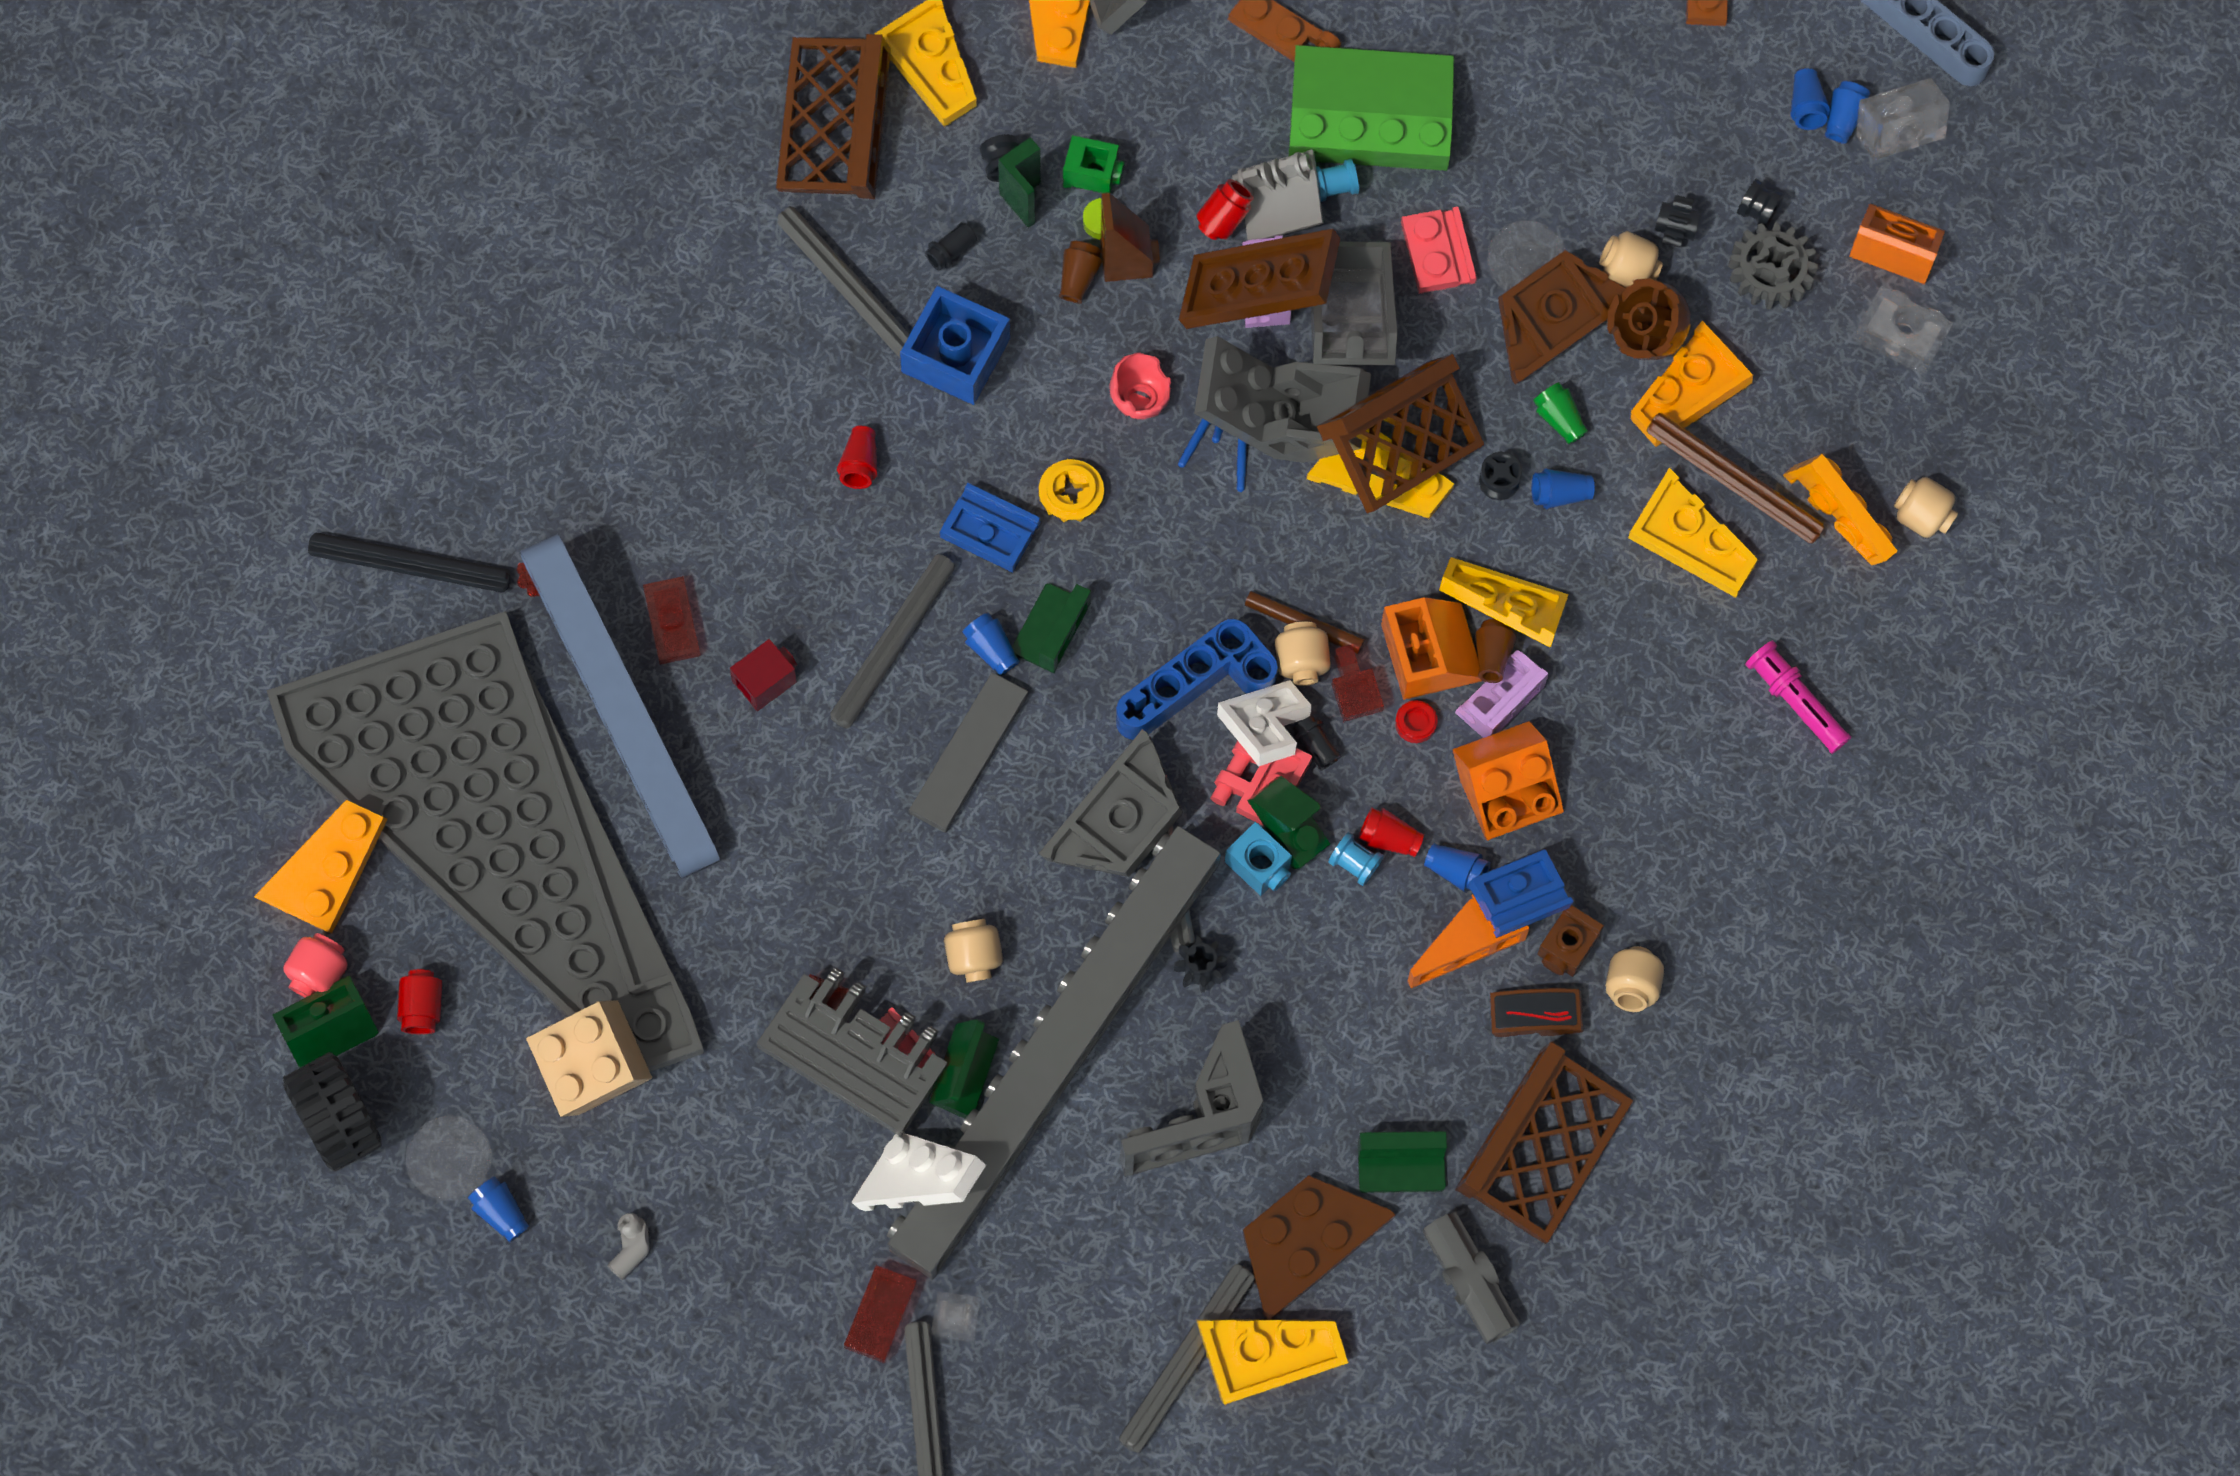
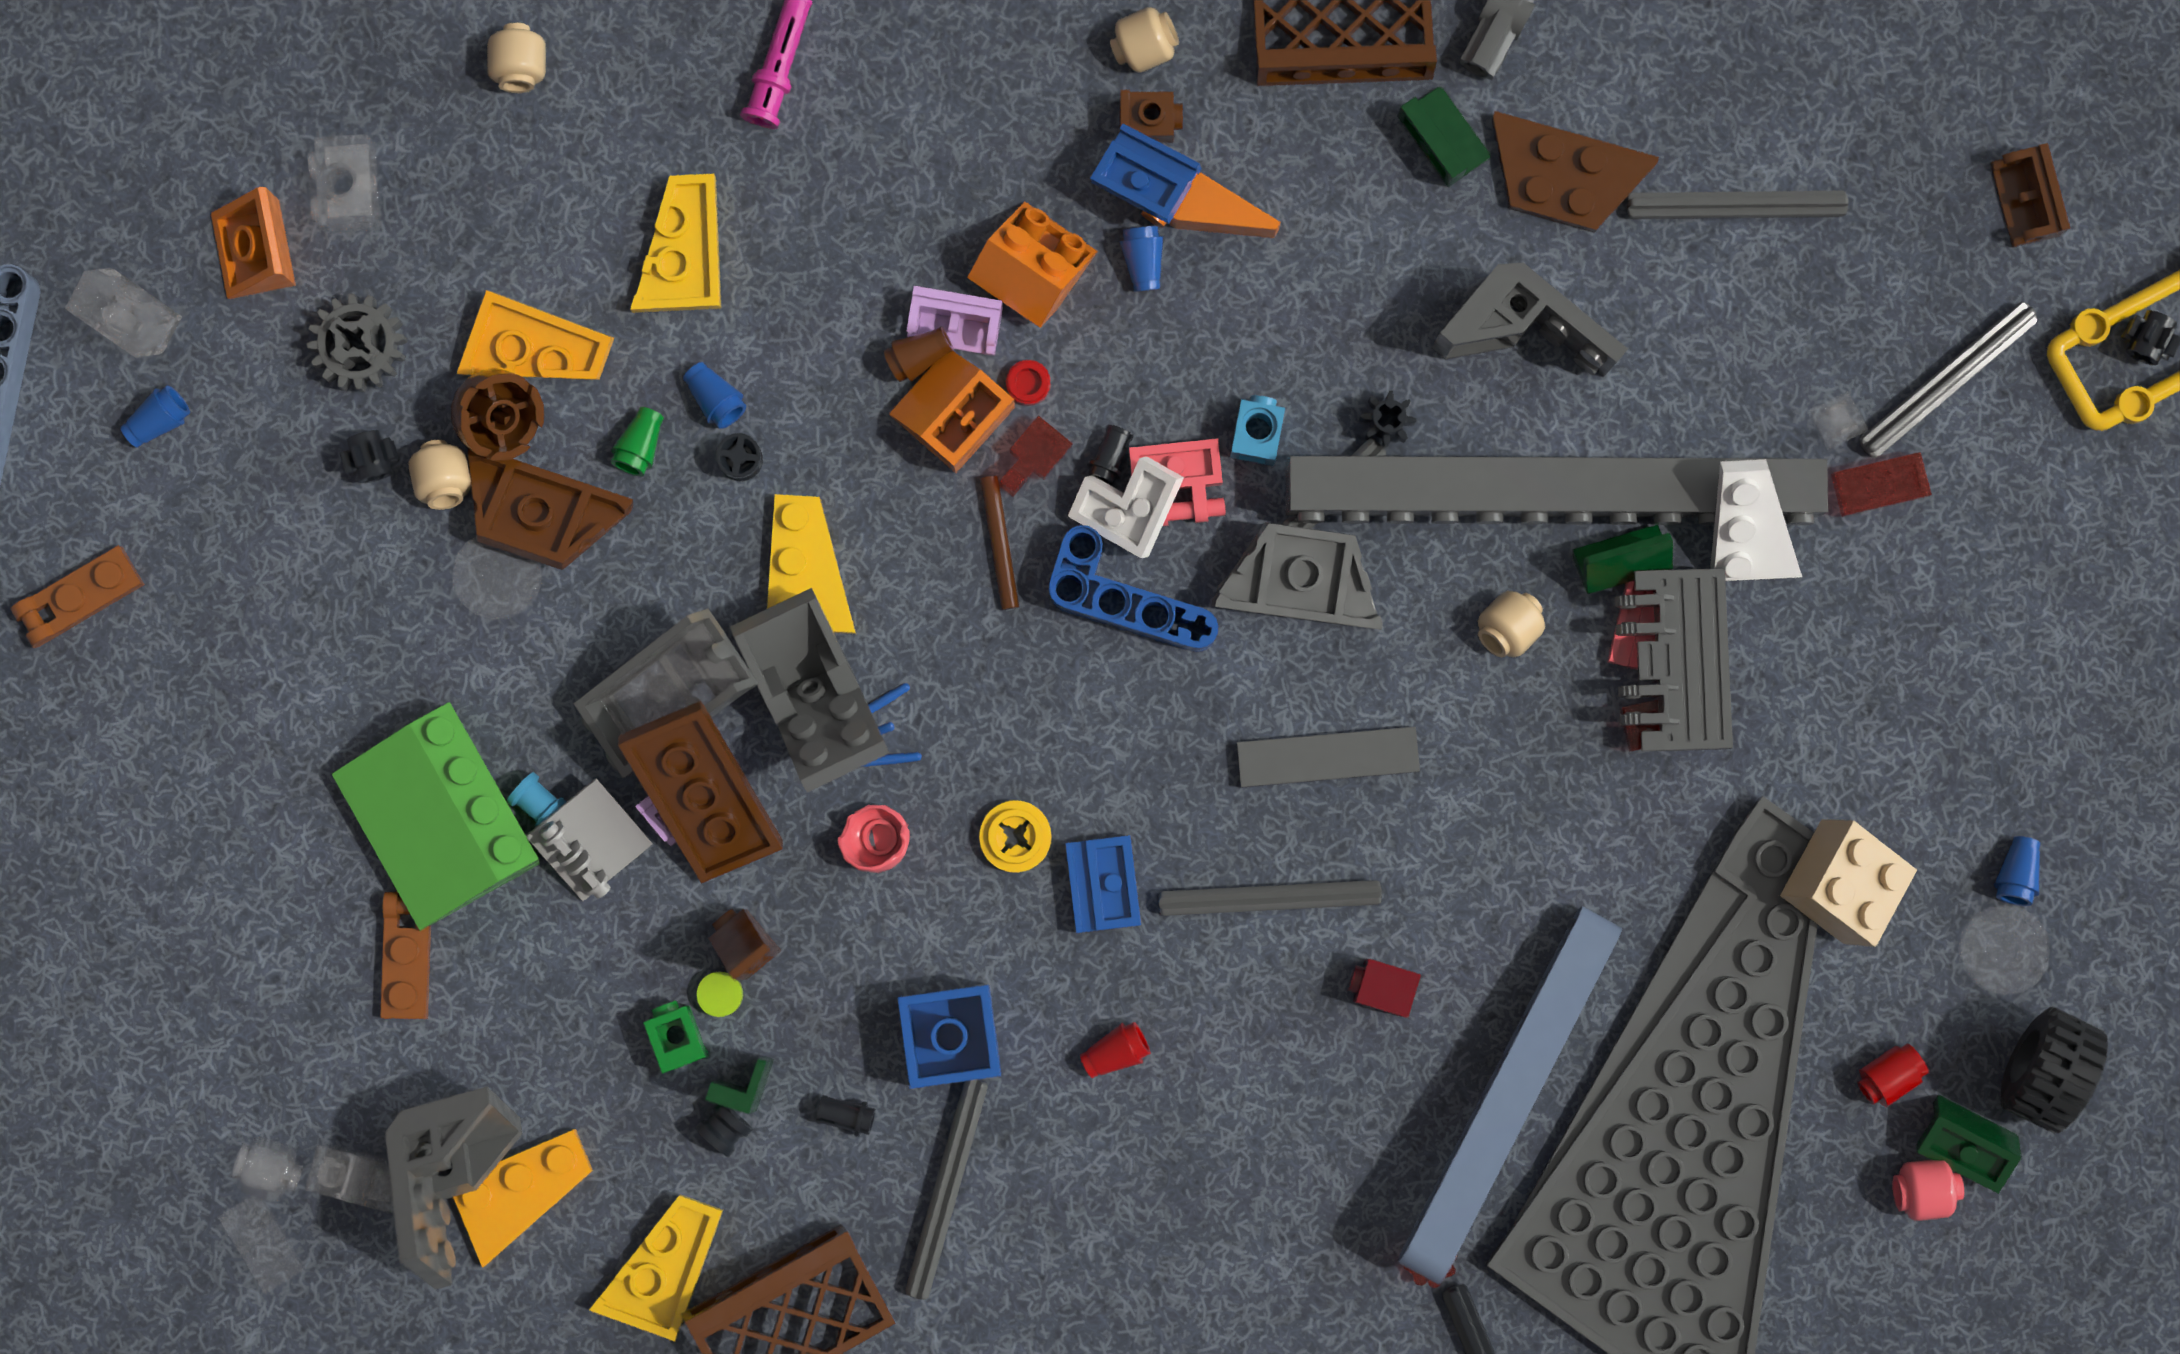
camera: 125 degrees left, 15 degrees up
(326, 868) = (1833, 1247): light orange wing -> none
(634, 1245) = (1967, 734): light grey arm -> none
(671, 620) = (1387, 1111): clear red plate -> none
(990, 642) = (1214, 806): blue cone -> none
(1052, 625) = (1159, 765): dark green panel -> none
(1078, 270) = (790, 978): reddish brown cone -> none
(1224, 210) = (640, 880): red brick -> none
(1268, 1353) = (1689, 136): yellow wing -> none
(1289, 819) = (1205, 426): dark green slope -> none
(1302, 653) = (1037, 519): tan head -> none
(1355, 859) = (1197, 349): dark azure bush -> none
(1381, 406) = (752, 586): reddish brown fence -> none
(1390, 833) = (1152, 336): red cone -> none
(1438, 250) = (542, 662): coral plate -> none
(1508, 599) = (860, 370): yellow wing -> none
(1536, 1011) = (1230, 106): slope -> none
(1735, 478) = (602, 244): reddish brown axle -> none
(1760, 203) = (298, 393): black wheel -> none
(1833, 496) = (573, 116): light orange wing -> none
(1844, 110) = (144, 374): blue cone -> none

